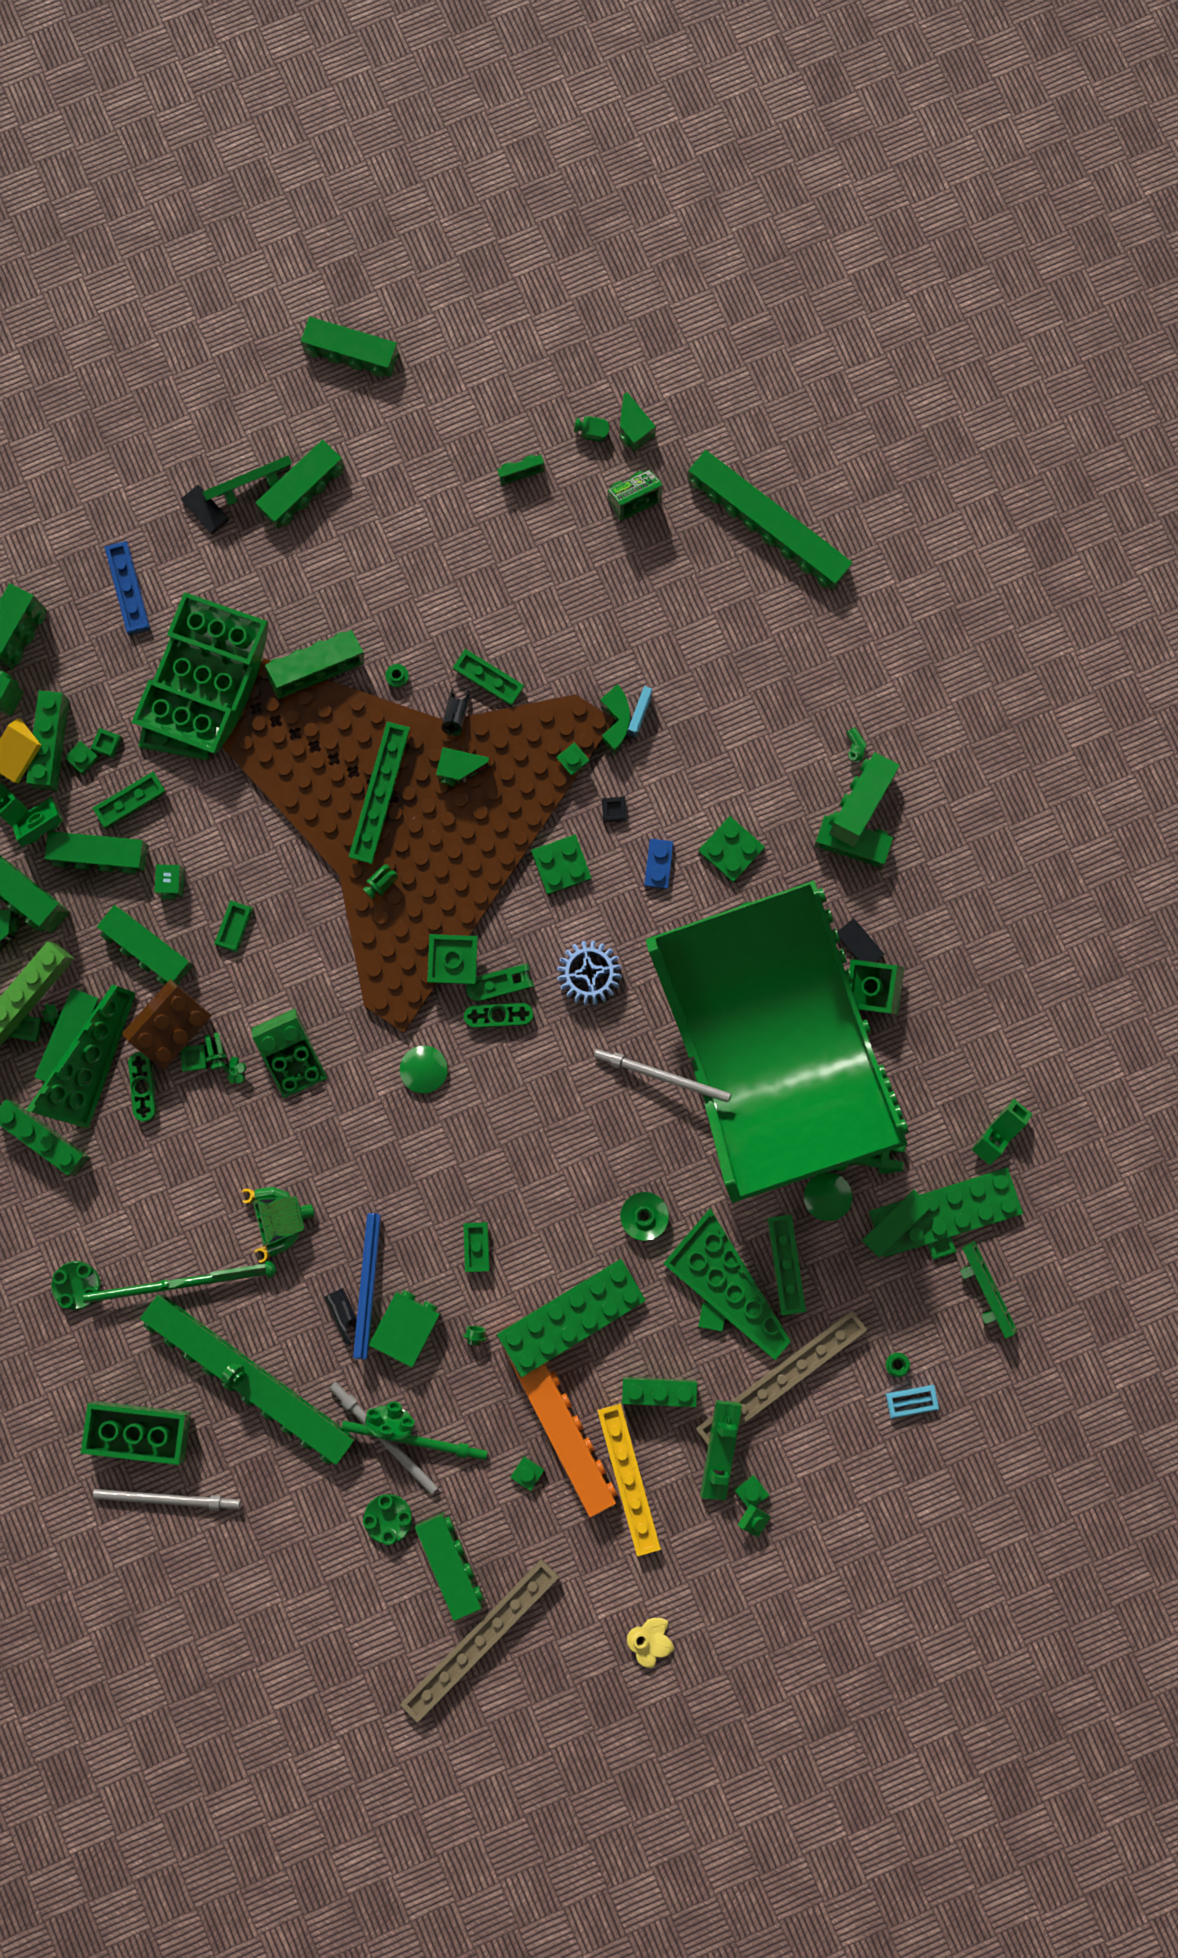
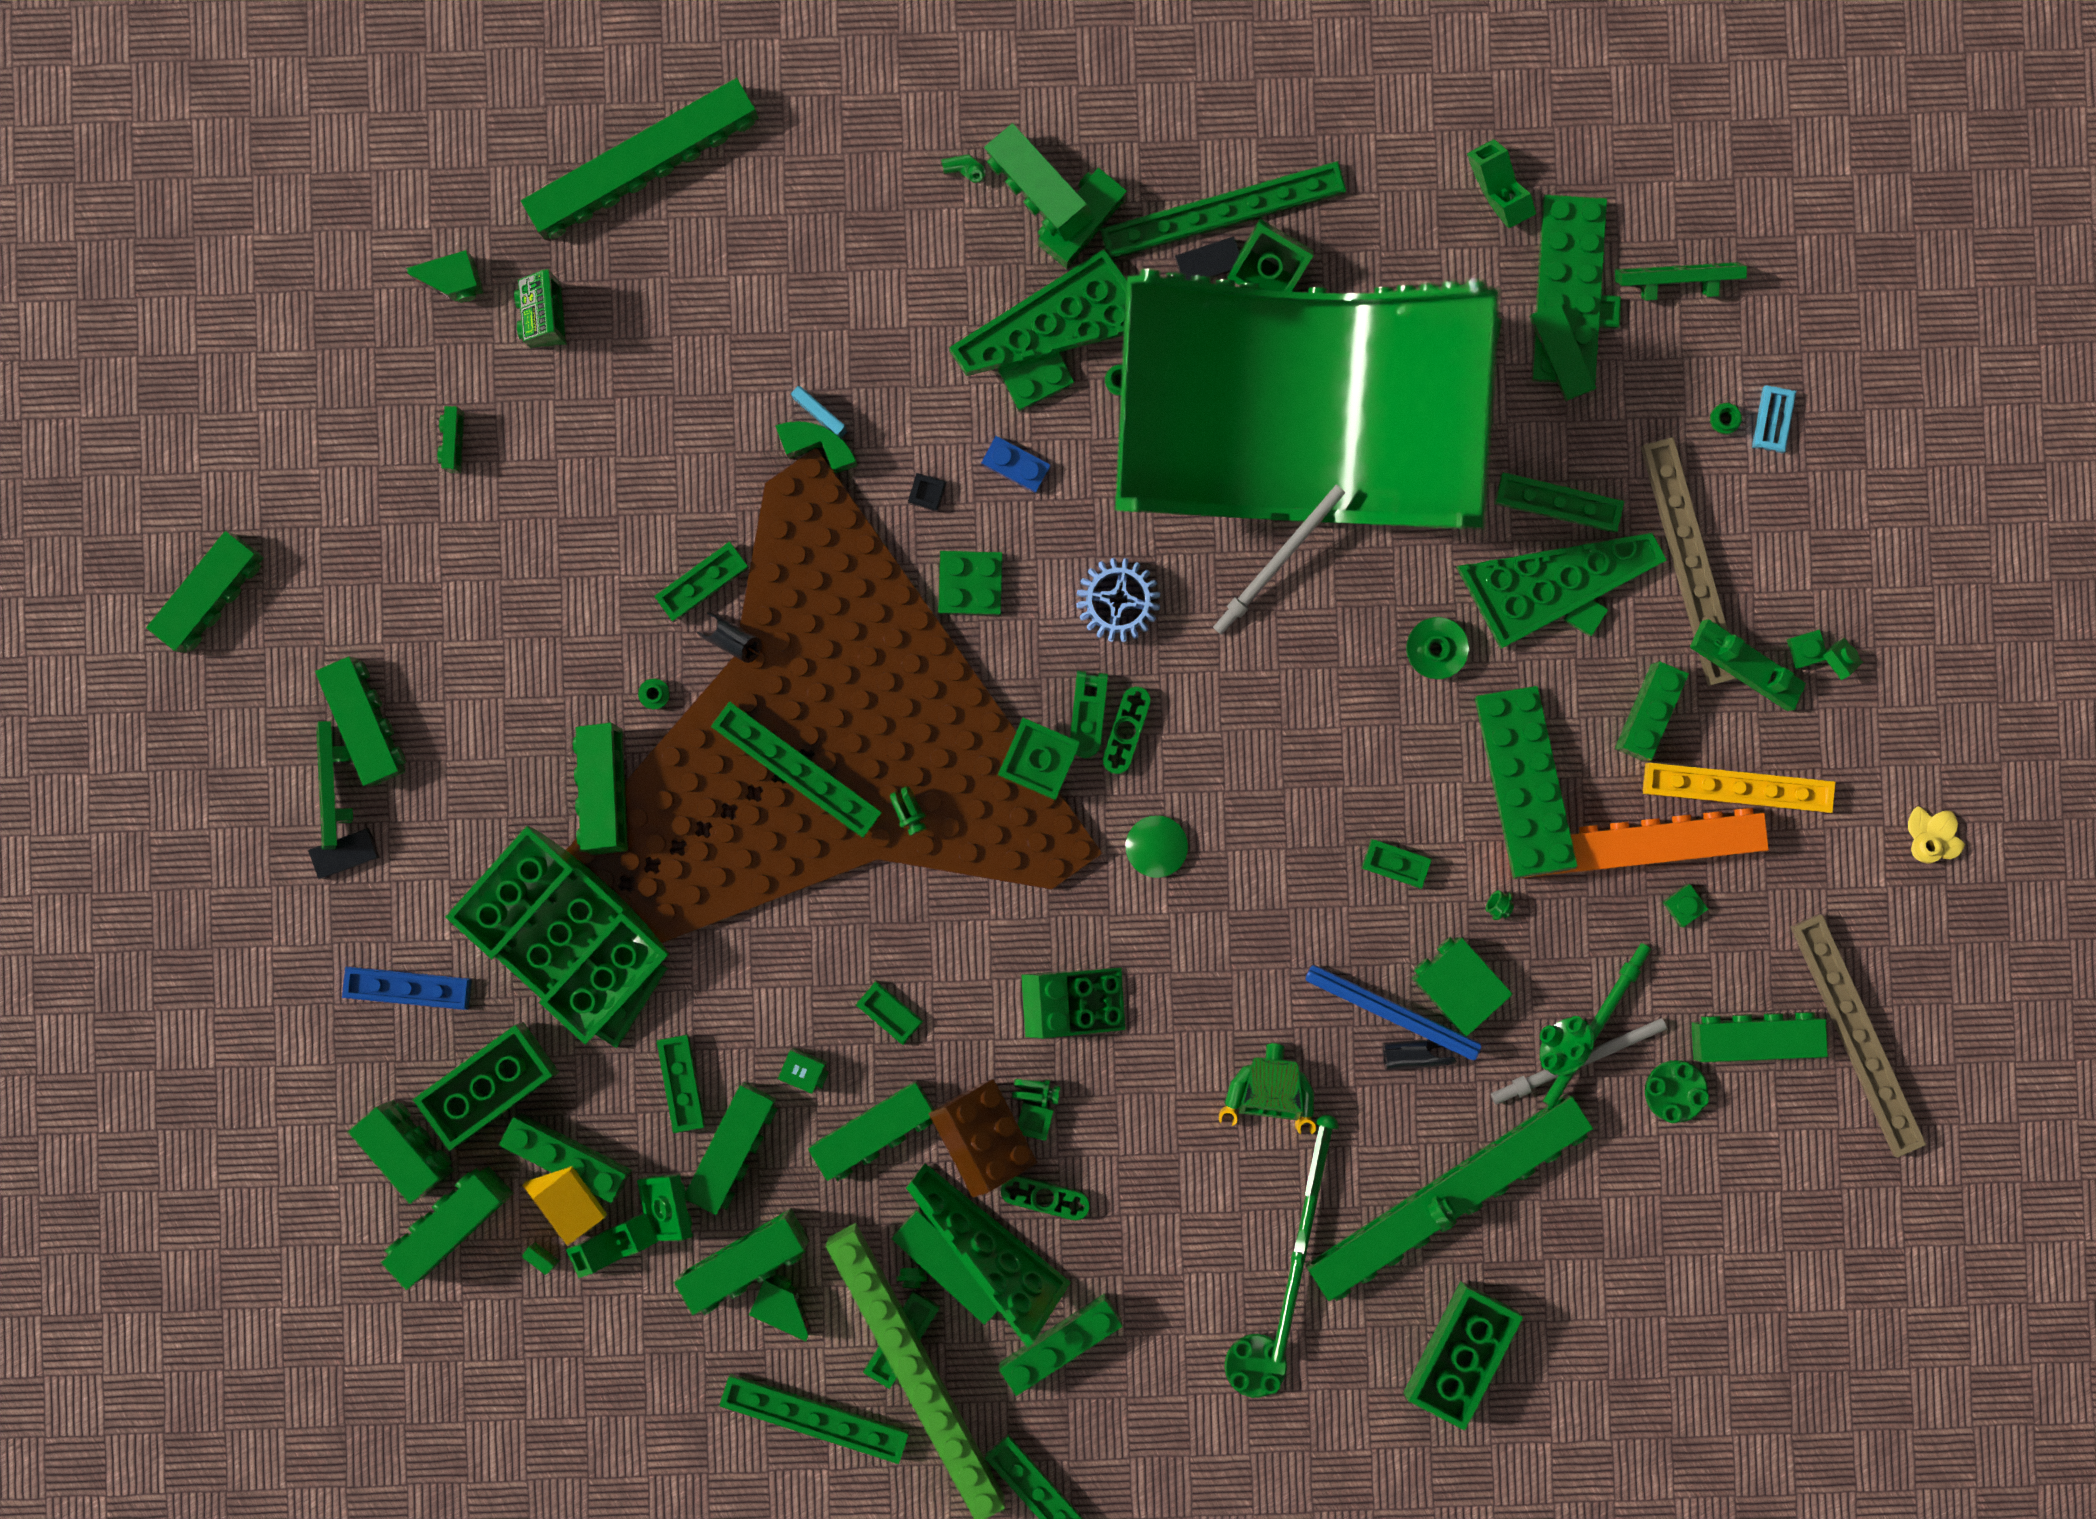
camera: 70 degrees left, 5 degrees up
(78, 666) = (486, 1085): none -> green brick
(82, 757) = (602, 1123): green plate -> none
(106, 743) = (595, 1086): green tile -> none
(214, 1502) = (1579, 1291): light grey bar -> none
(235, 1071) = (1070, 1076): green plant -> none
(459, 766) = (803, 658): green slope -> none
(572, 759) = (847, 517): green plate -> none
(592, 428) = (434, 331): green arm -> none
(772, 849) = (1064, 315): none -> green wing
(828, 1196) = (1508, 422): green dish -> none
(901, 940) = (1223, 210): none -> green tile

